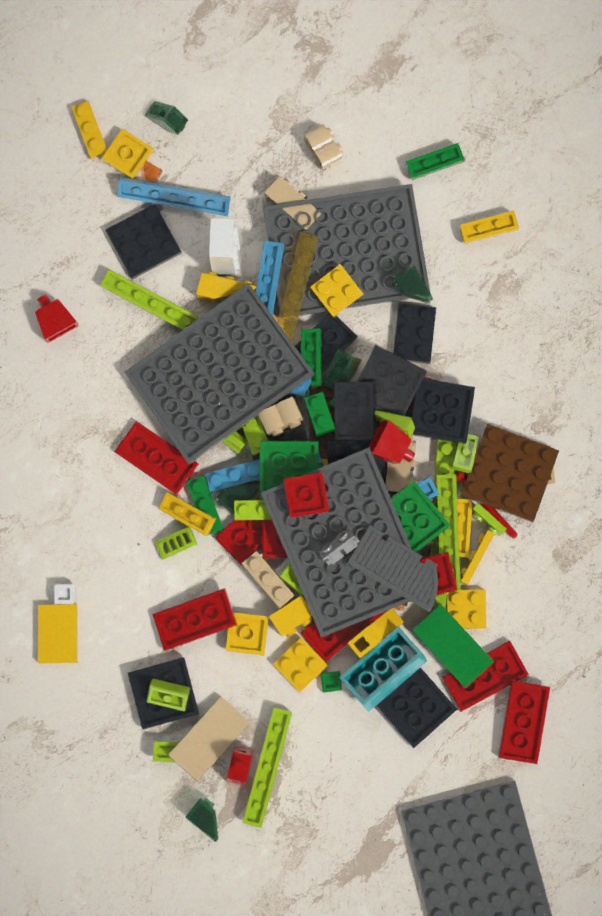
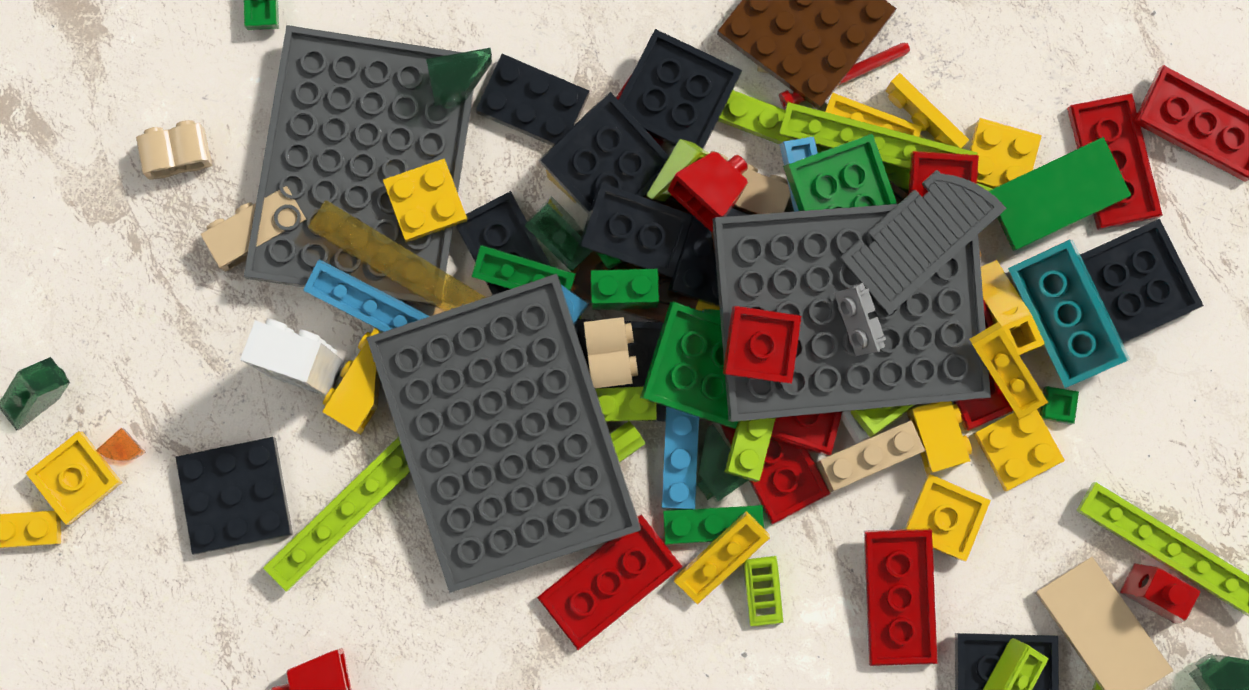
camera: 75 degrees left, 0 degrees up
(173, 196) = (174, 422): dark azure plate -> none
(338, 641) = (1008, 370): none -> yellow plate
(465, 454) = (759, 80): lime plate -> none
(481, 514) = (883, 72): lime plate -> none

